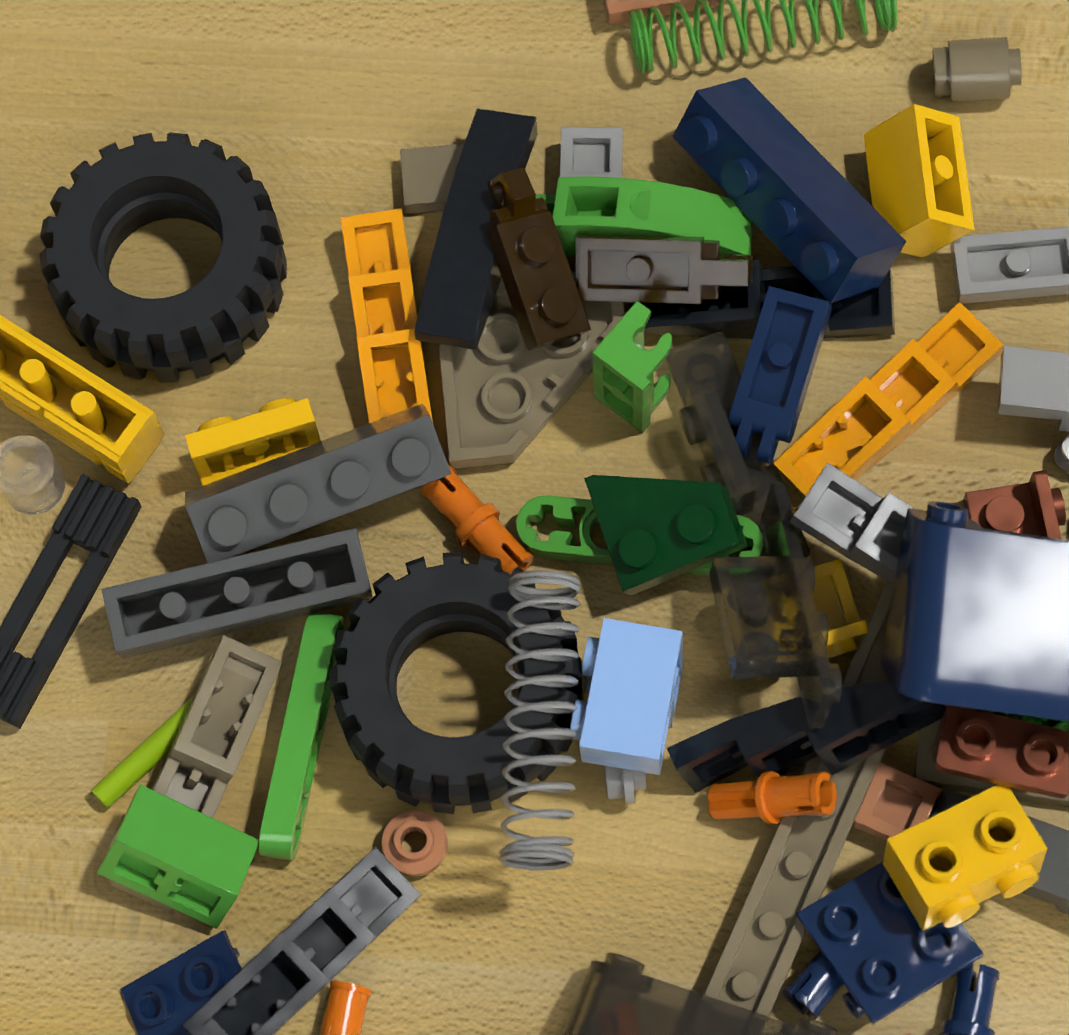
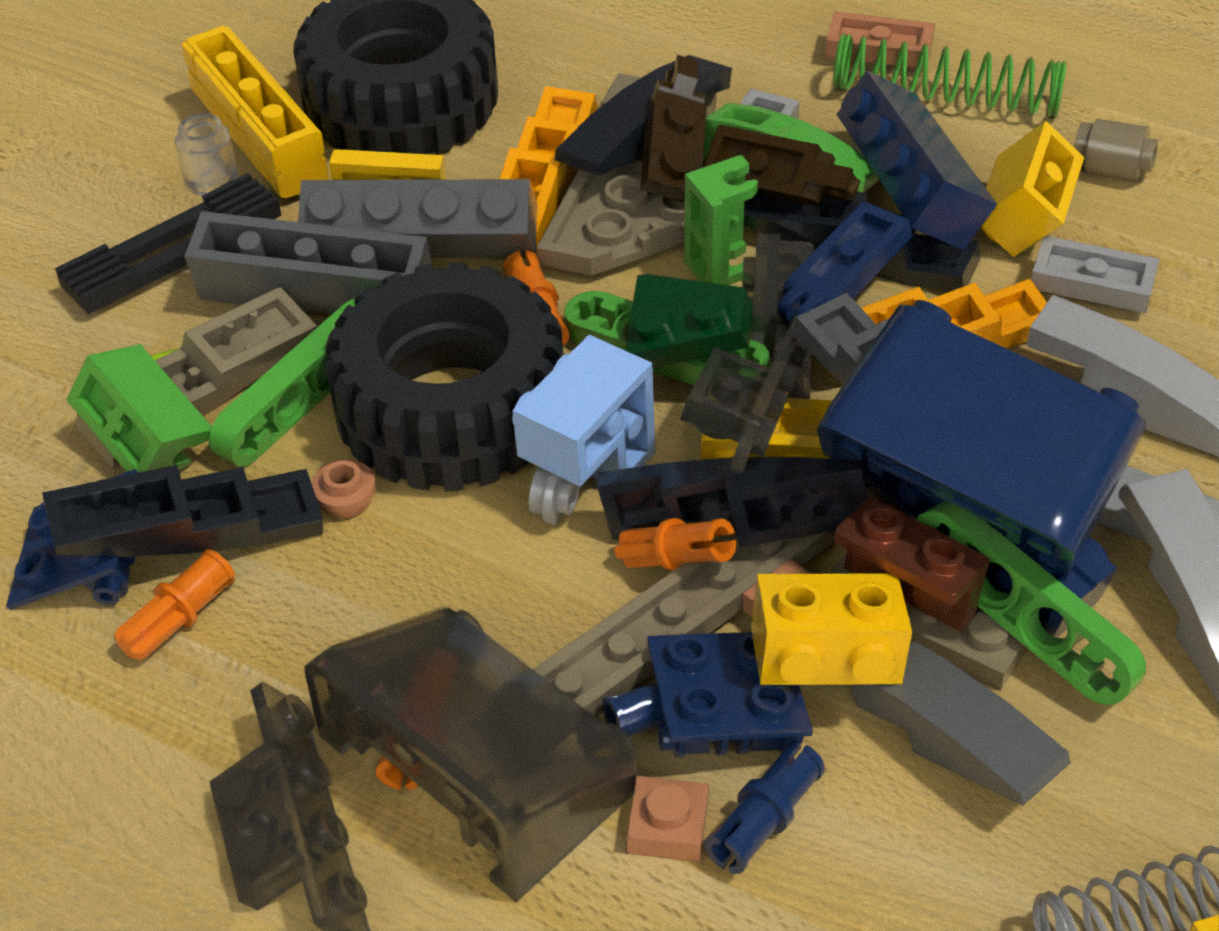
camera: 20 degrees right, 25 degrees down
(530, 851) = (436, 444): light grey piece -> none

